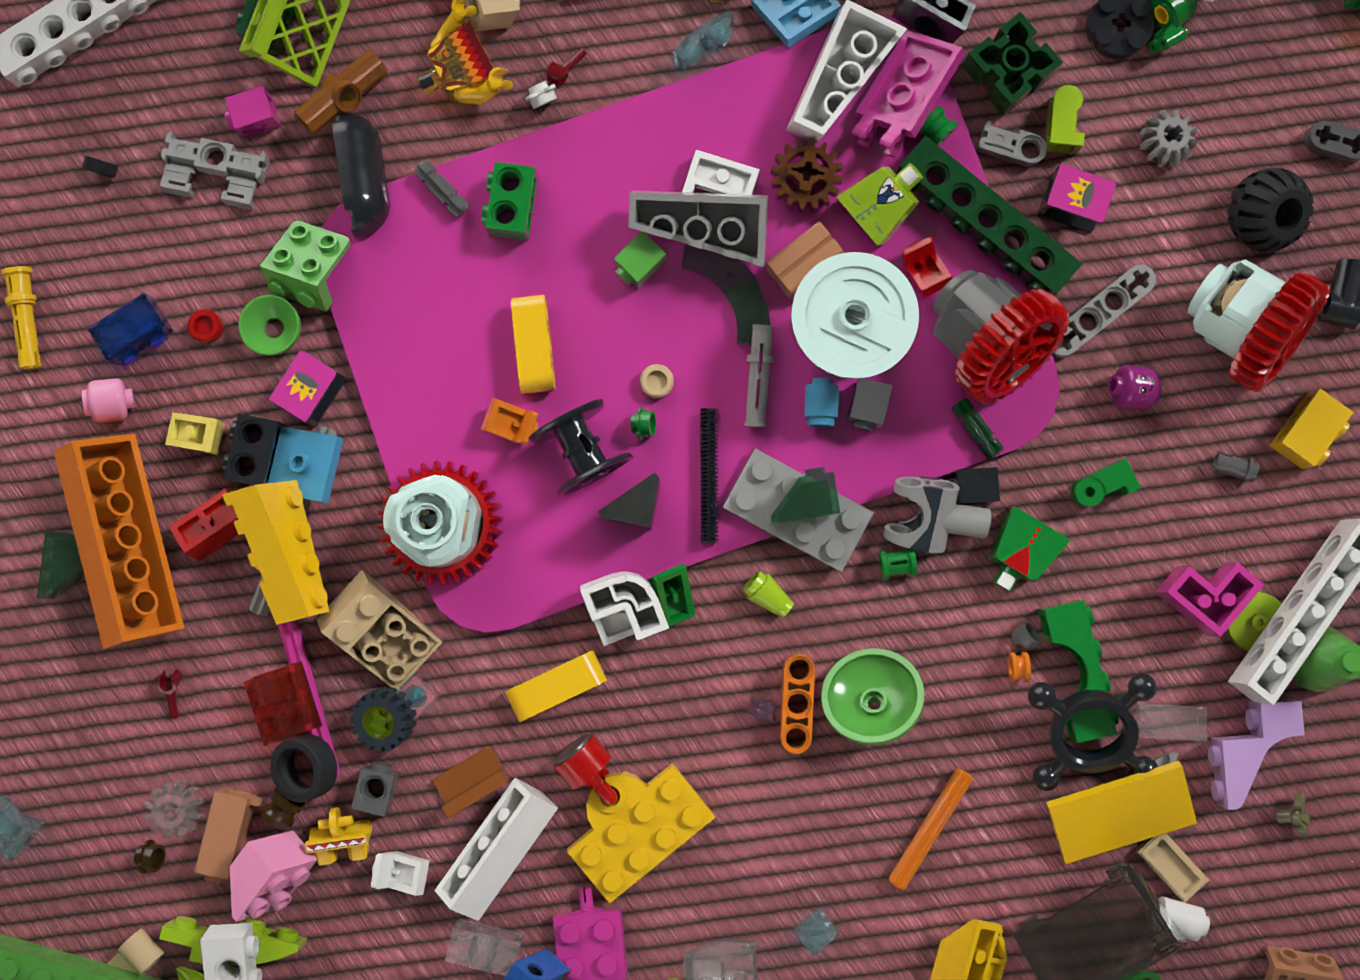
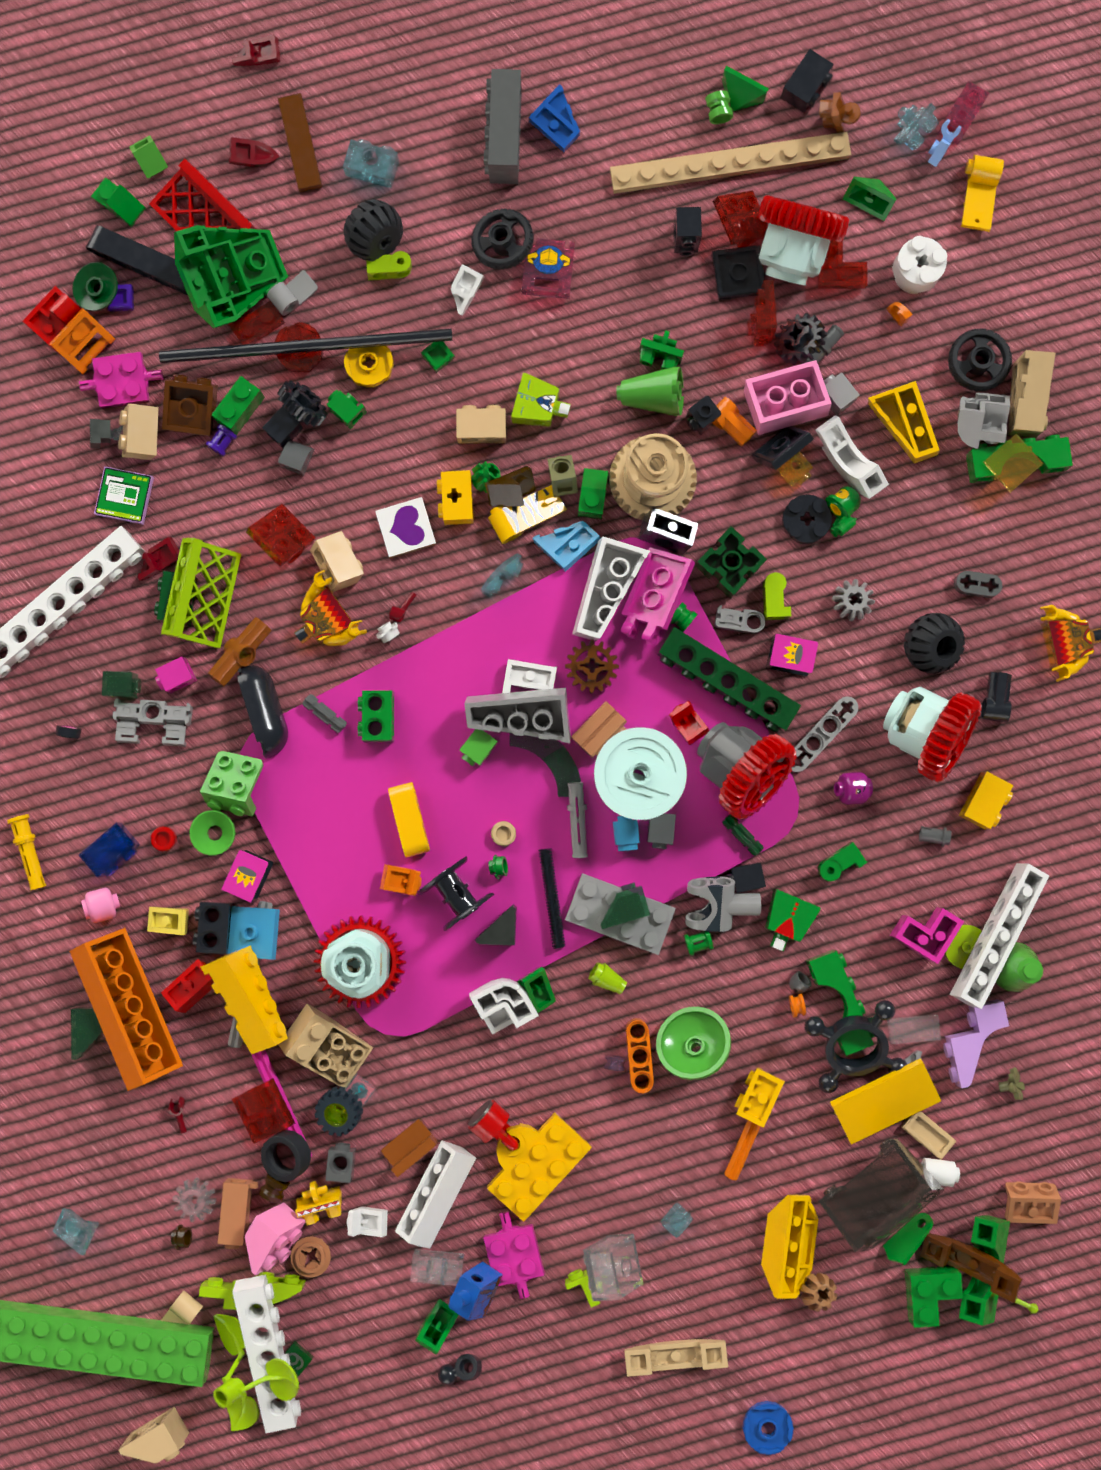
camera: 15 degrees left, 0 degrees up
(177, 114) = (120, 684): none -> clear green brick
(302, 908) = (313, 1268): none -> nougat gear
(556, 686) = (461, 1068): yellow beam -> none
(882, 201) = (649, 679): lime torso -> none
(952, 781) = (759, 1097): none -> yellow bracket

